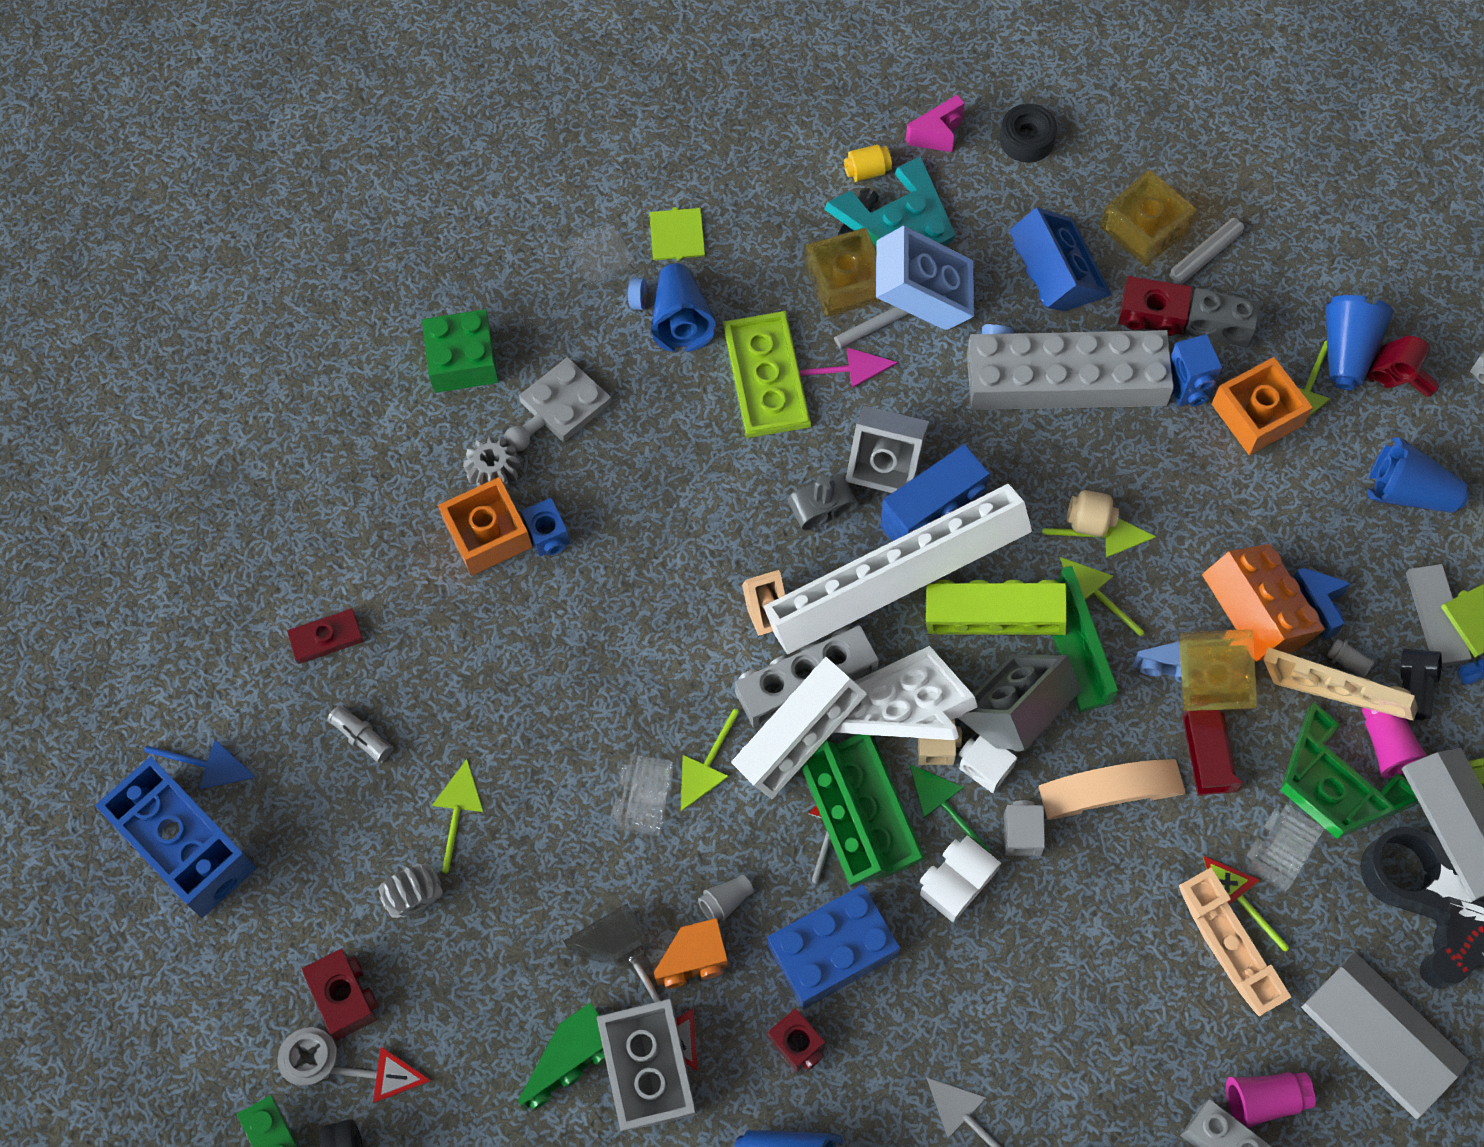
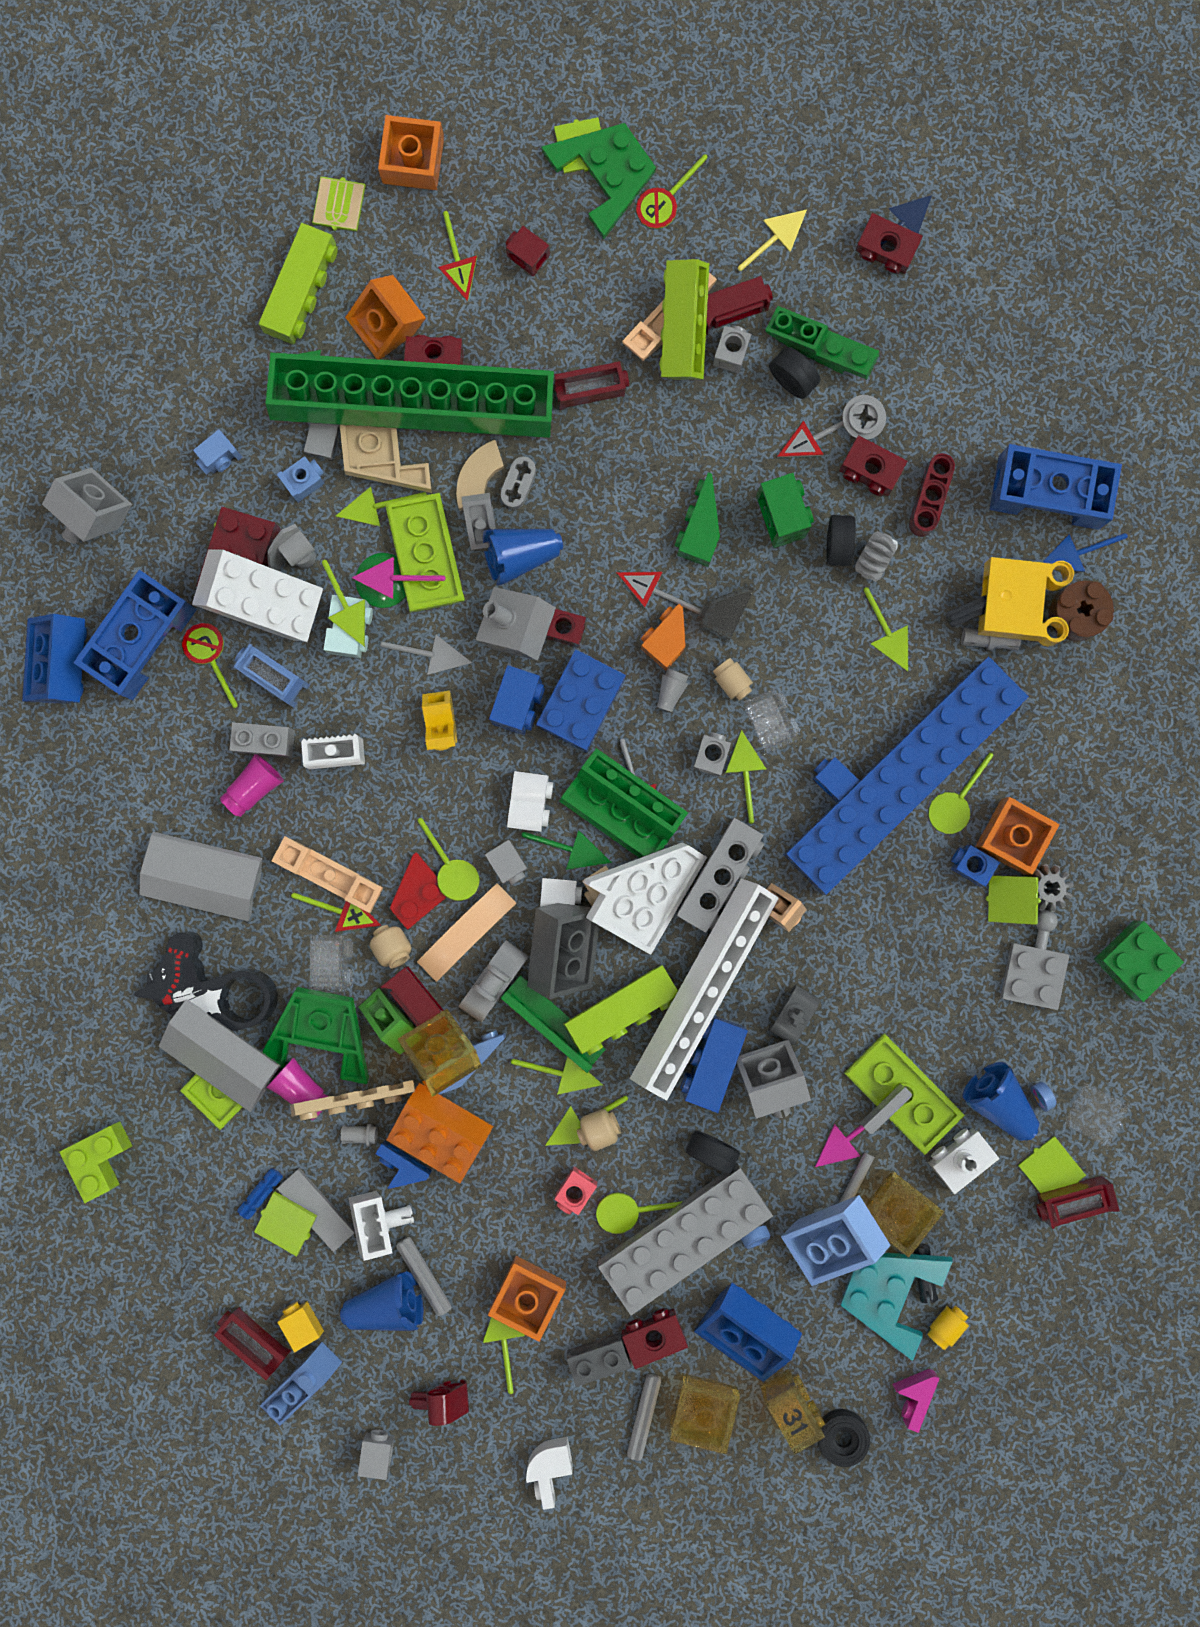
camera: 150 degrees right, 20 degrees up
(236, 701) = (1094, 601): none -> reddish brown brick
(285, 921) = (940, 485): none -> dark red beam
(309, 745) = (1015, 600): none -> yellow piece
(325, 636) = (1068, 689): dark red plate -> none
(434, 932) = (840, 540): none -> black tyre
(470, 1003) = (784, 510): none -> green brick
(527, 597) = (950, 811): none -> lime piece
(533, 472) = (1013, 899): none -> lime piece
(547, 652) = (905, 775): none -> blue brick
(621, 695) = (834, 778): none -> blue brick
(646, 1065) = (646, 547): light grey slope -> none
(653, 864) = (733, 679): none -> tan brick
(675, 192) = (1077, 1201): none -> dark red window
(735, 786) = (707, 766): none -> light grey brick
(753, 283) = (962, 1159): none -> white brick
(795, 364) = (886, 1109): none -> light grey tile
(798, 728) = (698, 829): white brick -> none
(851, 1077) = (515, 623): none -> light grey brick
(905, 988) = (517, 700): none -> blue brick
(990, 425) = (712, 1152): none -> black tyre
(1006, 1026) = (439, 720): none -> yellow brick
(1061, 171) = (794, 1415): none -> clear yellow brick
(1089, 850) = (456, 878): none -> lime piece
(1113, 718) = (493, 981): none -> light grey piece
(1114, 432) = (619, 1212): none -> lime piece
(1141, 862) = (416, 893): none -> red wing
(1142, 482) = (578, 1179): none -> coral brick
(1150, 1071) = (332, 751): none -> white brick
(1194, 370) = (591, 1293): blue brick -> none
(1206, 822) = (390, 946): none -> tan head
(1253, 748) = (386, 1019): none -> bright green slope
(1325, 262) = (546, 1462): none -> white brick
(1354, 337) = (491, 1401): blue cone -> none
(1357, 490) = (423, 1276): none -> light grey axle
(1384, 562) = (373, 1224): none -> white brick
(1420, 673) = (305, 1152): black piece -> none

